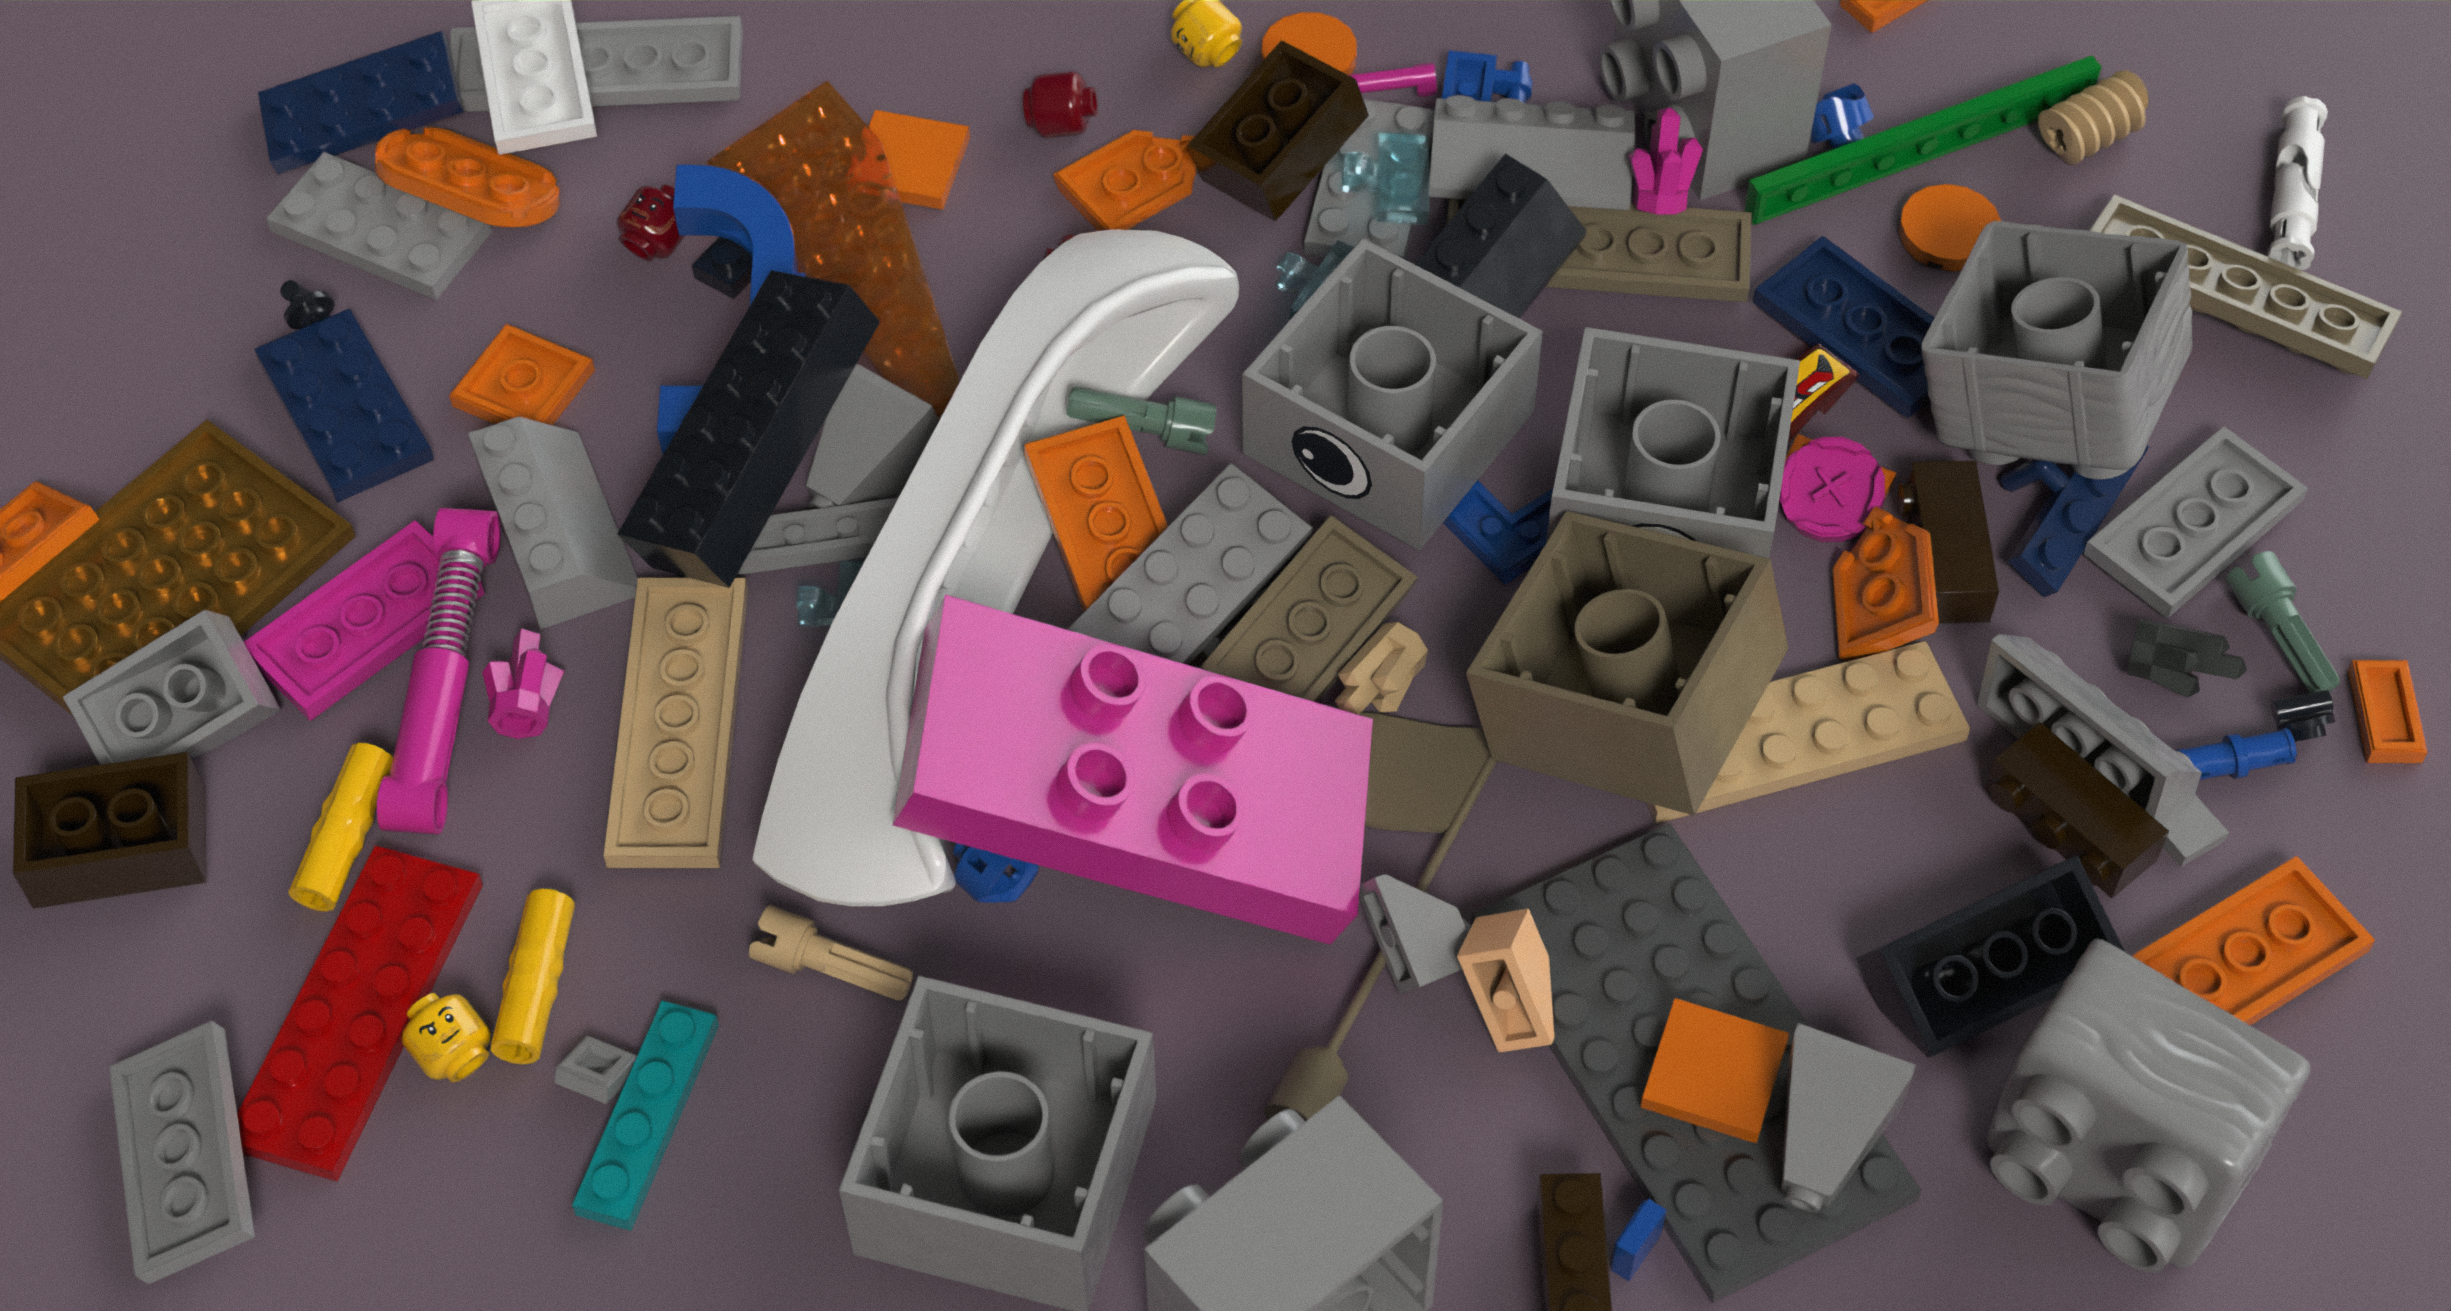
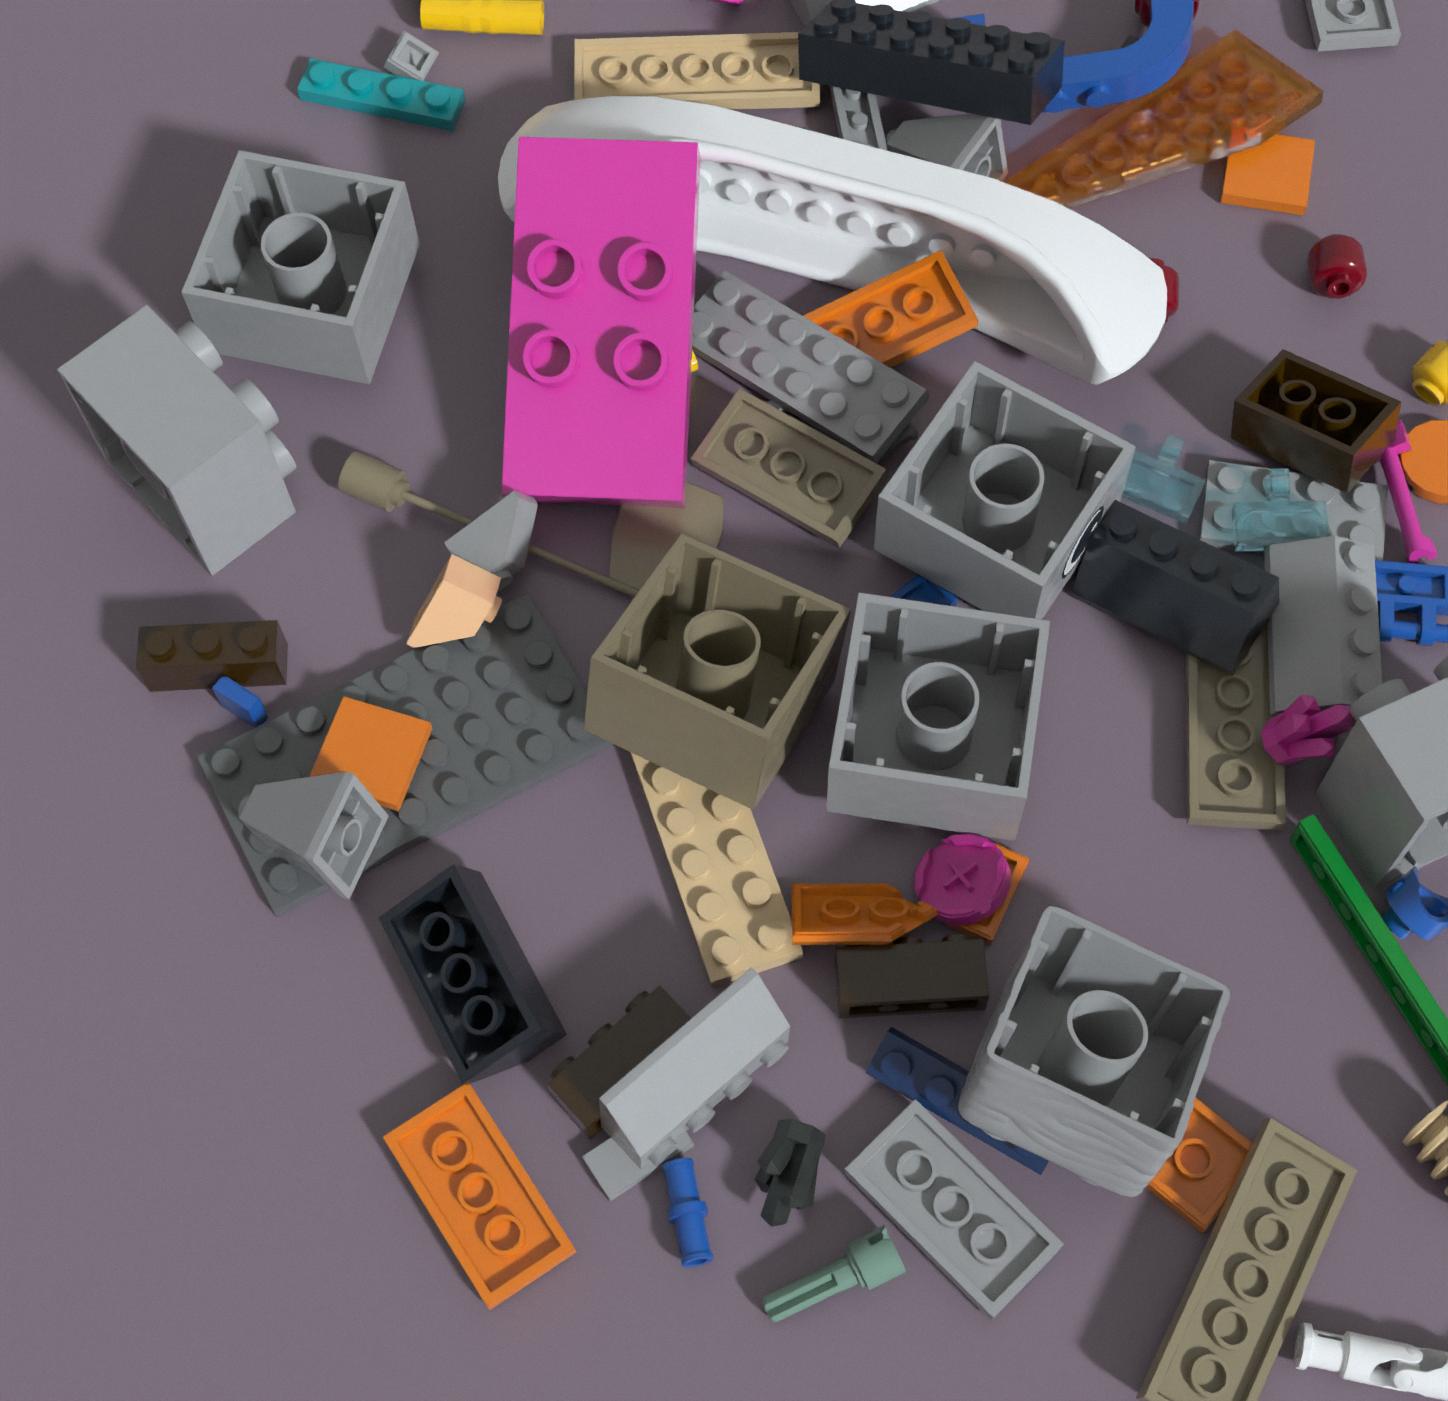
camera: 90 degrees right, 10 degrees up
(801, 947) = (488, 194): tan piece -> none
(1129, 179) = (1263, 321): orange tile -> none
(1179, 423) = (992, 328): sand green piece -> none
(1382, 670) = (747, 520): tan rock -> none
(1819, 385) = (1080, 863): slope -> none
(1855, 316) = (1182, 899): dark blue plate -> none
(1944, 224) = (1303, 1013): orange tile -> none
(2141, 1109) = (278, 1042): light grey brick -> none
(2304, 714) = (728, 1279): black plate -> none
(2387, 711) = (747, 1367): orange tile -> none

